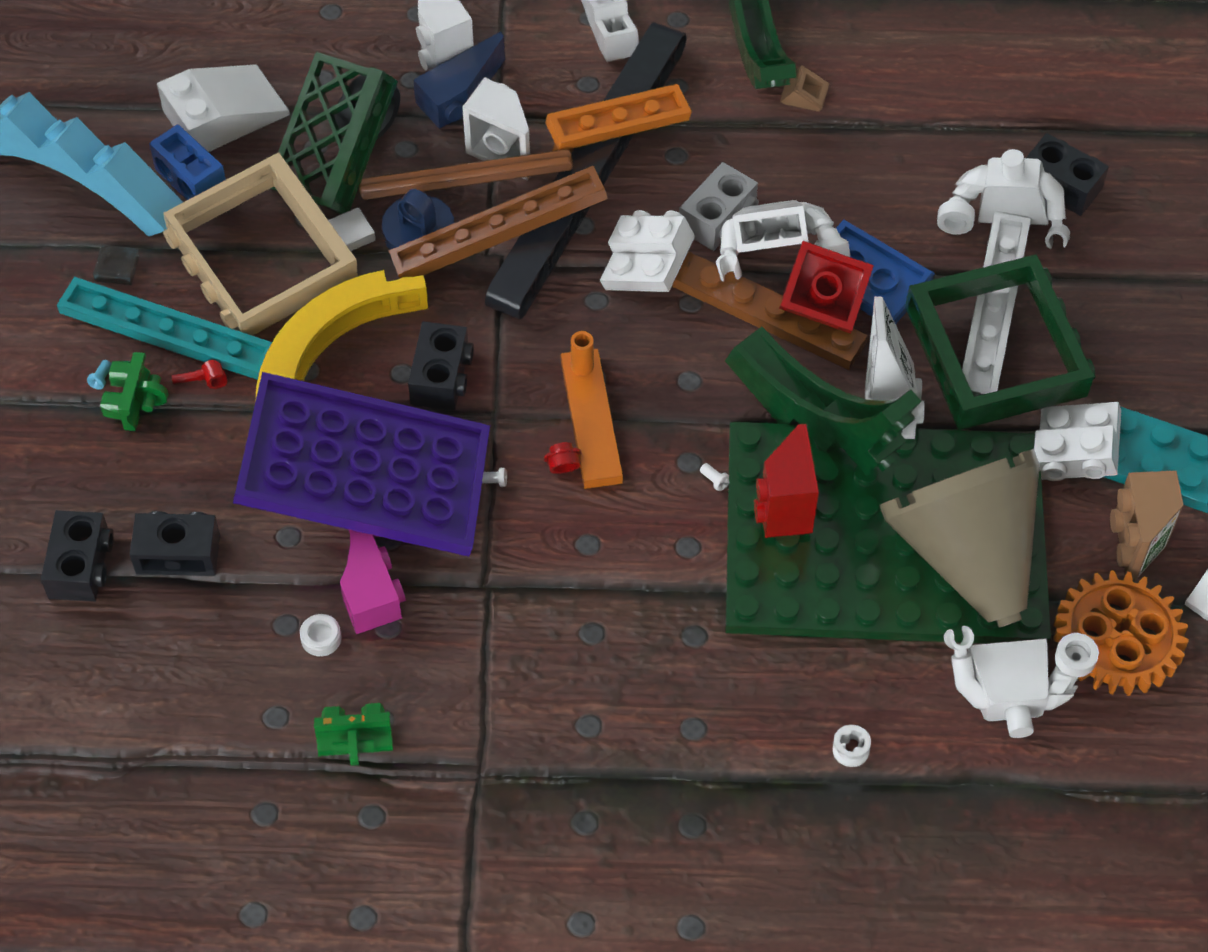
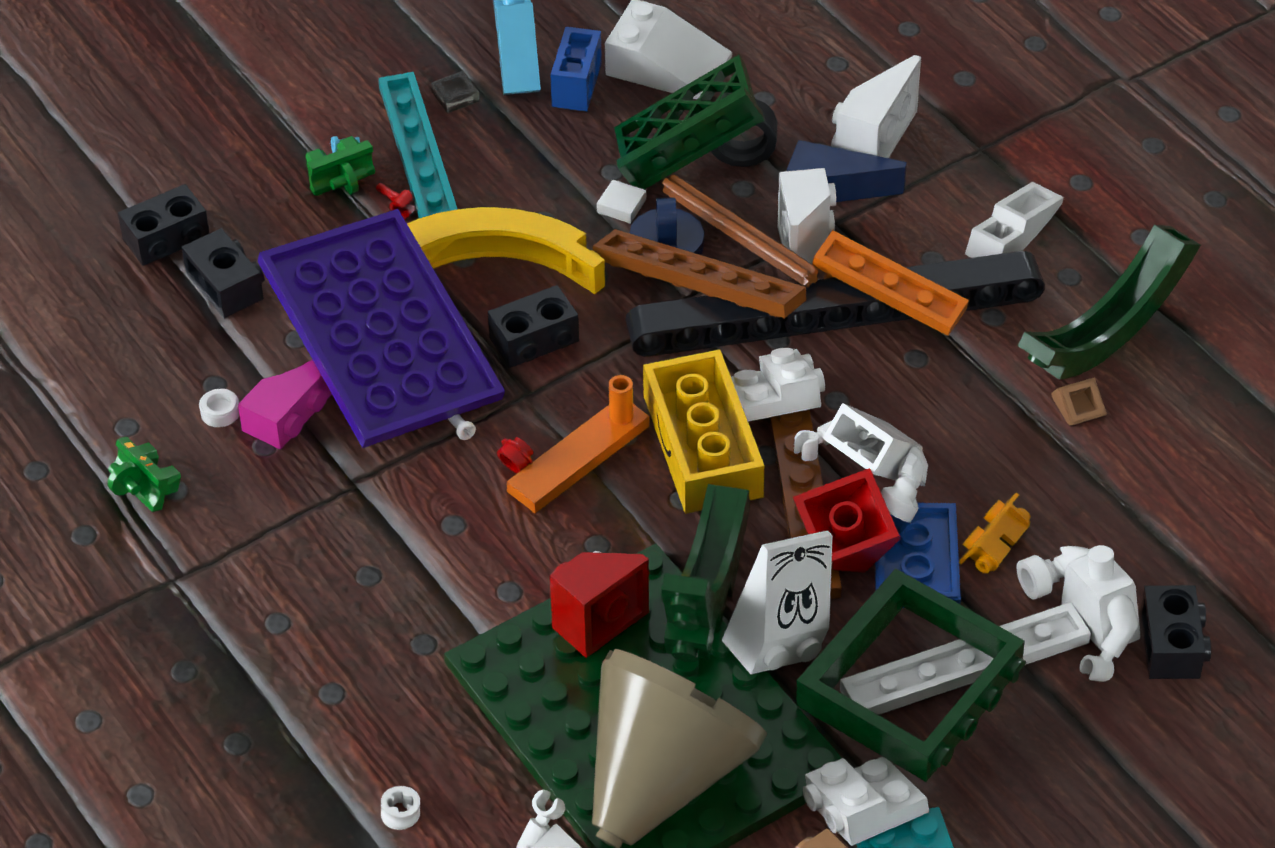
camera: 55 degrees right, 10 degrees down
(233, 192) = (554, 100): tan window -> none
(655, 322) = (702, 427): none -> yellow brick
(716, 202) = (885, 398): light grey brick -> none
(888, 215) = (985, 544): none -> light orange hinge

